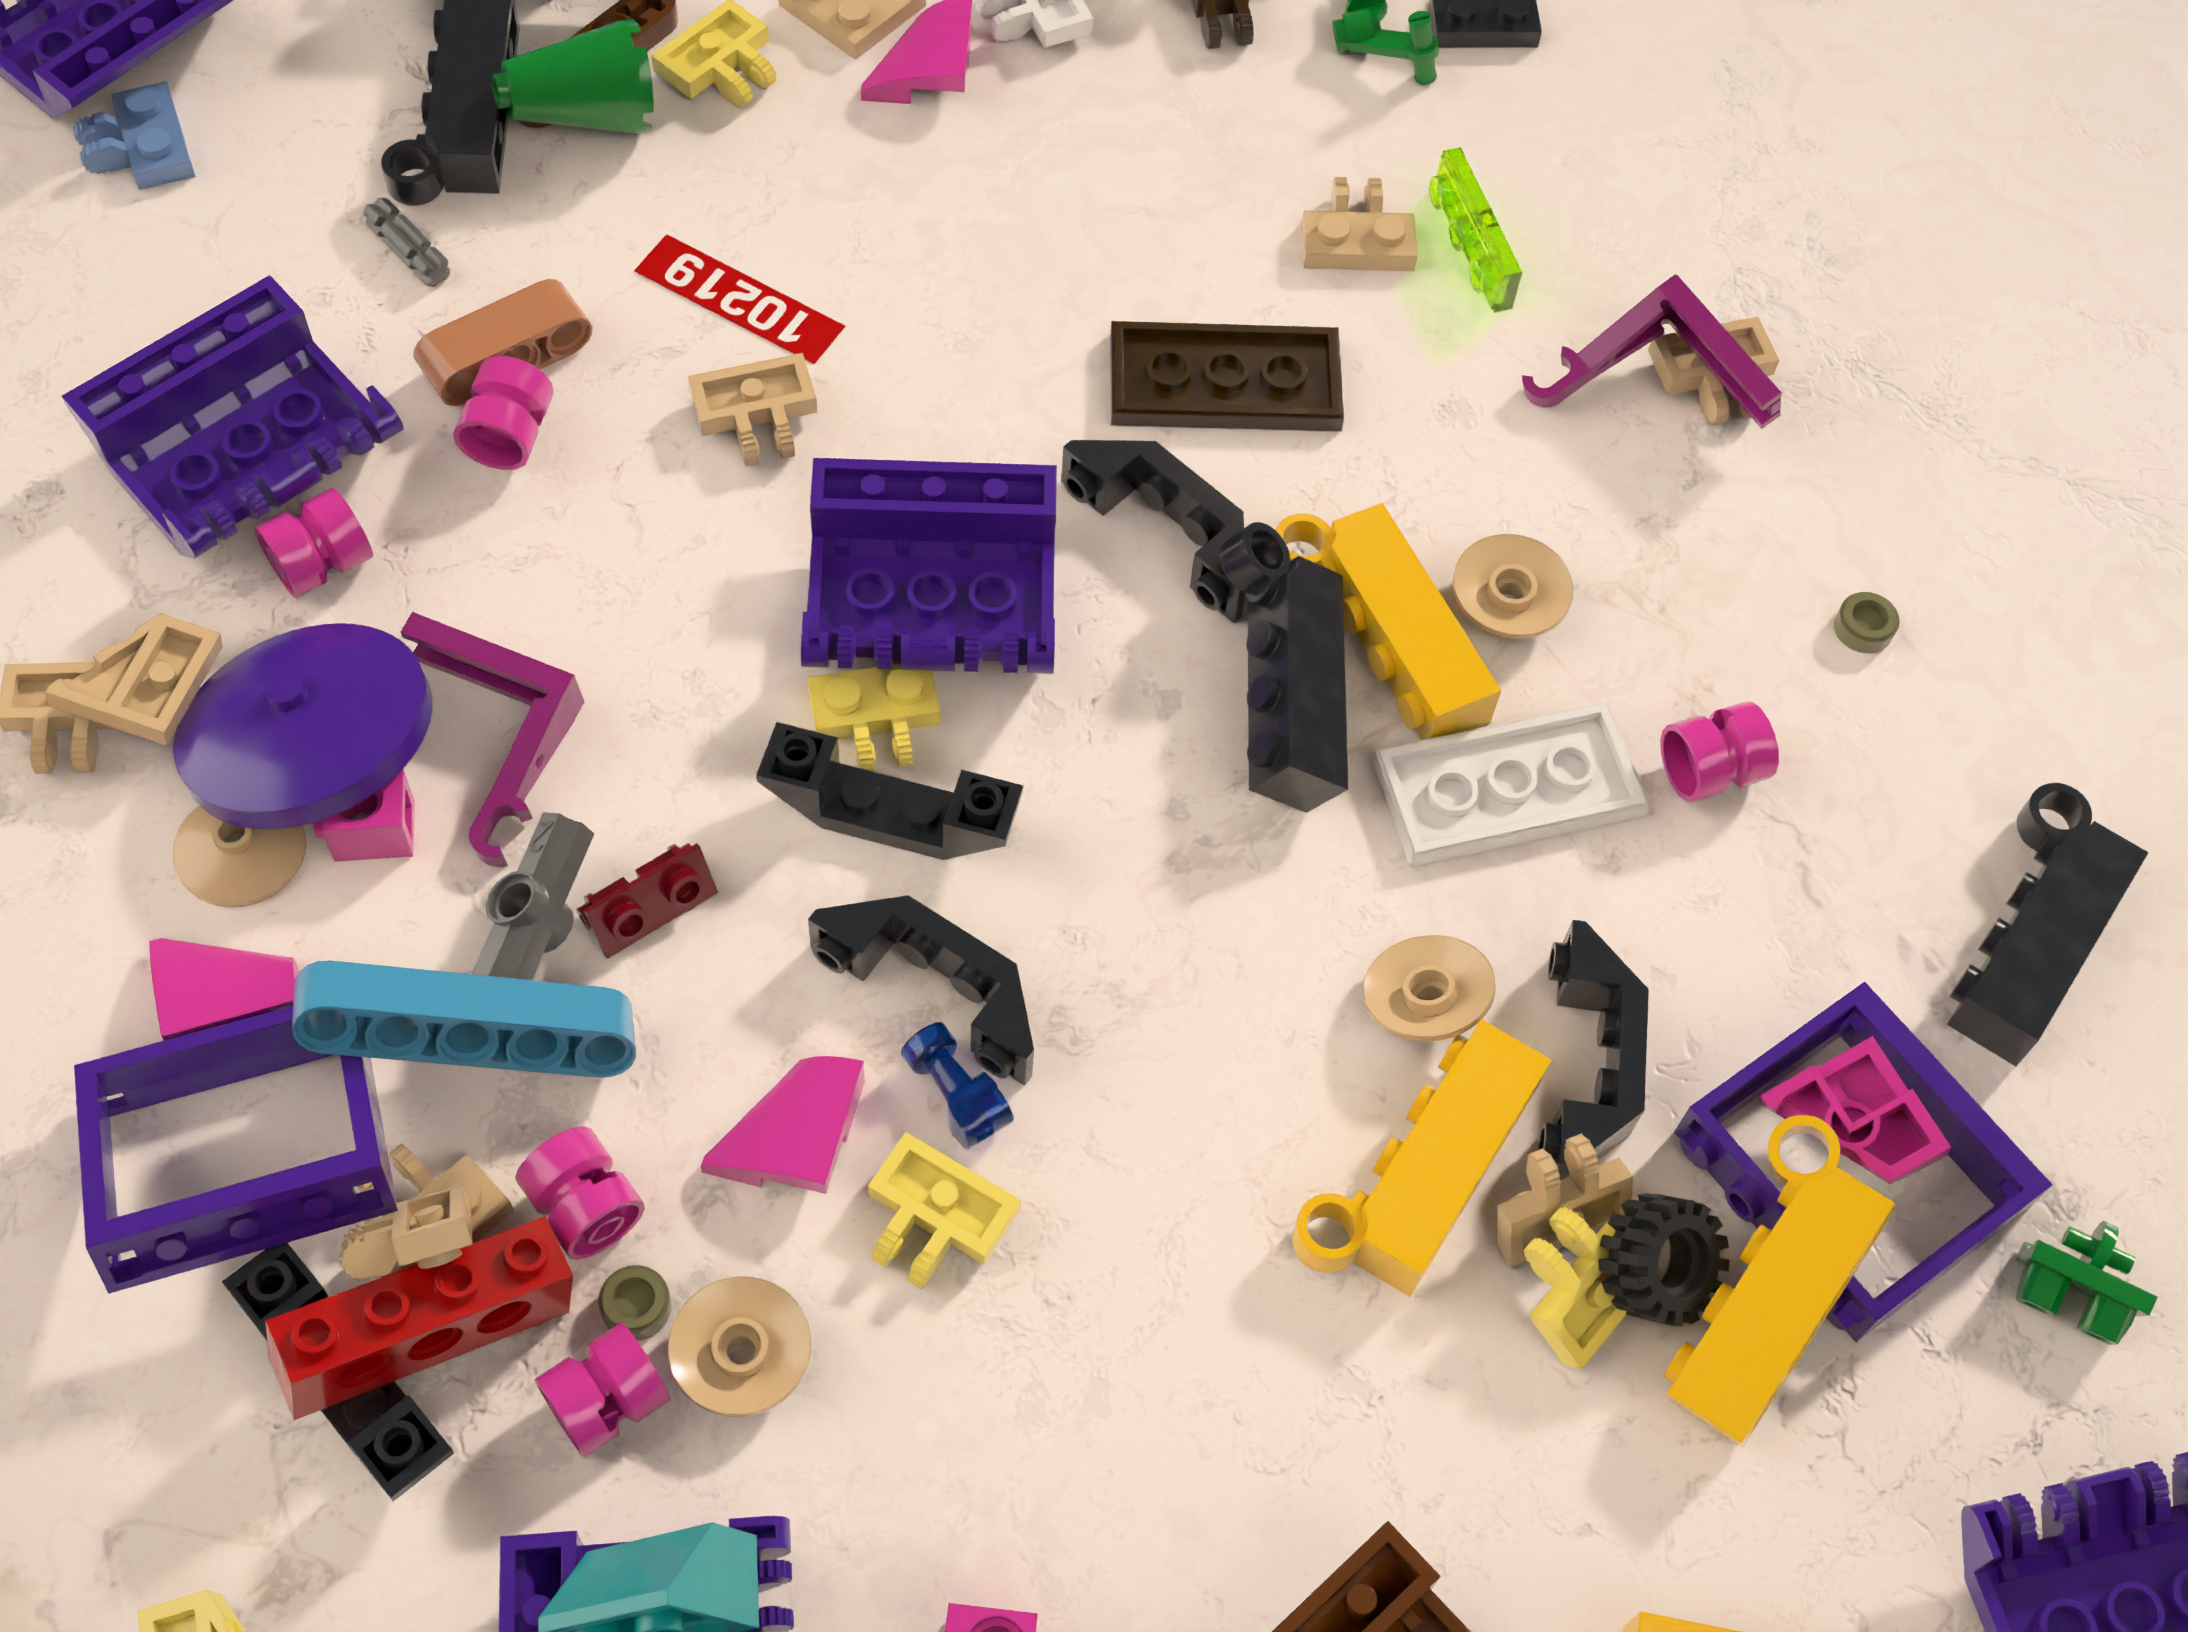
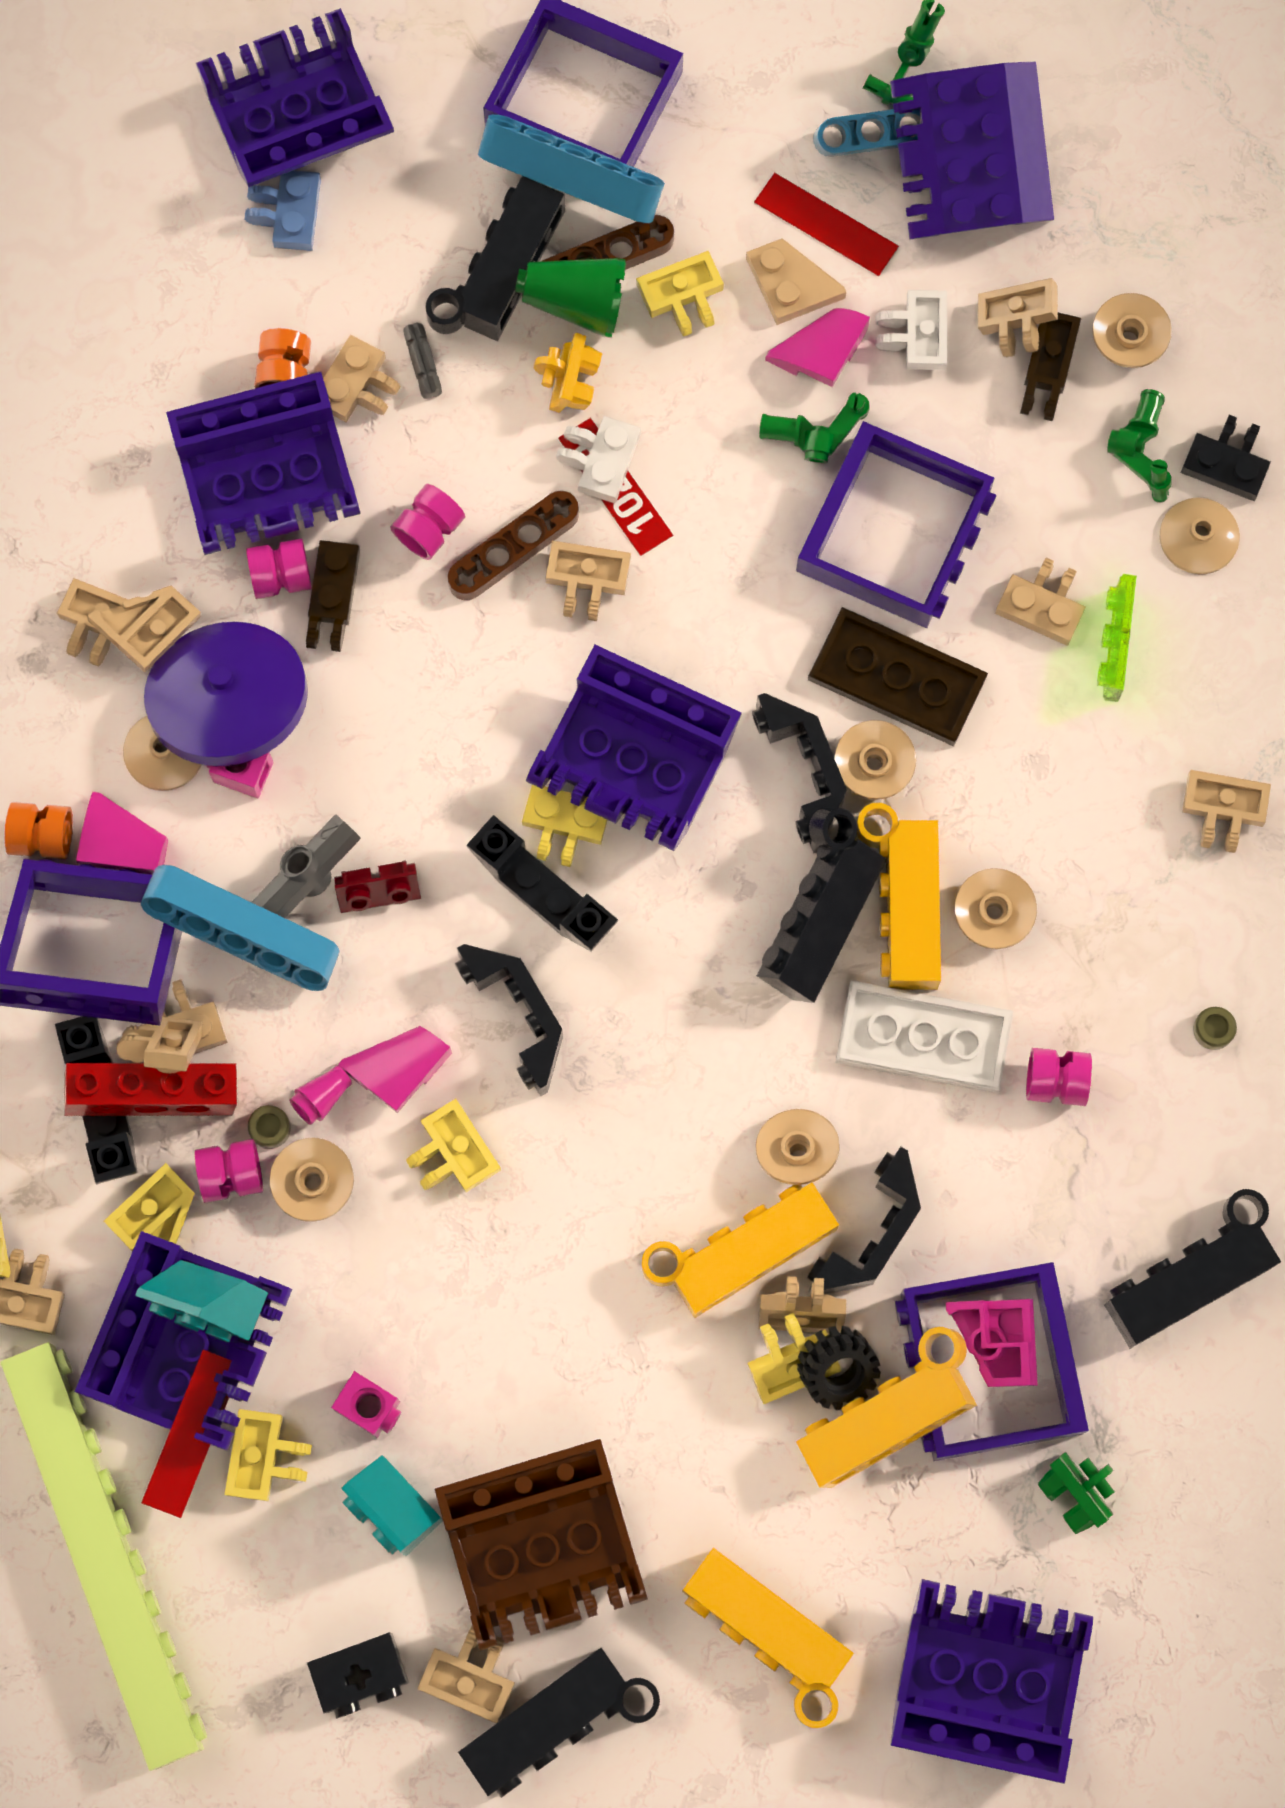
camera: 30 degrees right, 15 degrees up
(74, 1023) = (38, 830): none -> orange wheel
(201, 280) = (282, 356): none -> orange wheel
(333, 290) = (352, 374): none -> tan hinge
(404, 549) = (332, 591): none -> dark brown hinge
(506, 1493) = (154, 1208): none -> light yellow wing
(531, 325) = (451, 465): nougat beam -> none
(547, 689) = (359, 754): magenta hinge -> none
(575, 1186) = (263, 1053): dark pink wheel -> none
(607, 186) = (574, 358): none -> yellow hips
(627, 403) = (509, 540): none -> reddish brown beam
(693, 1221) = (319, 1095): none -> dark pink cone
(714, 264) = (608, 458): none -> white hinge
(974, 1103) = (501, 1097): clear blue leg -> none
(978, 152) = (816, 441): none -> green pin
(1132, 130) = (923, 462): none -> dark purple window
(1261, 456) = (878, 741): none -> tan dish
(1497, 102) = (1196, 552): none -> tan dish
(1681, 309) = (1181, 762): magenta hinge -> none

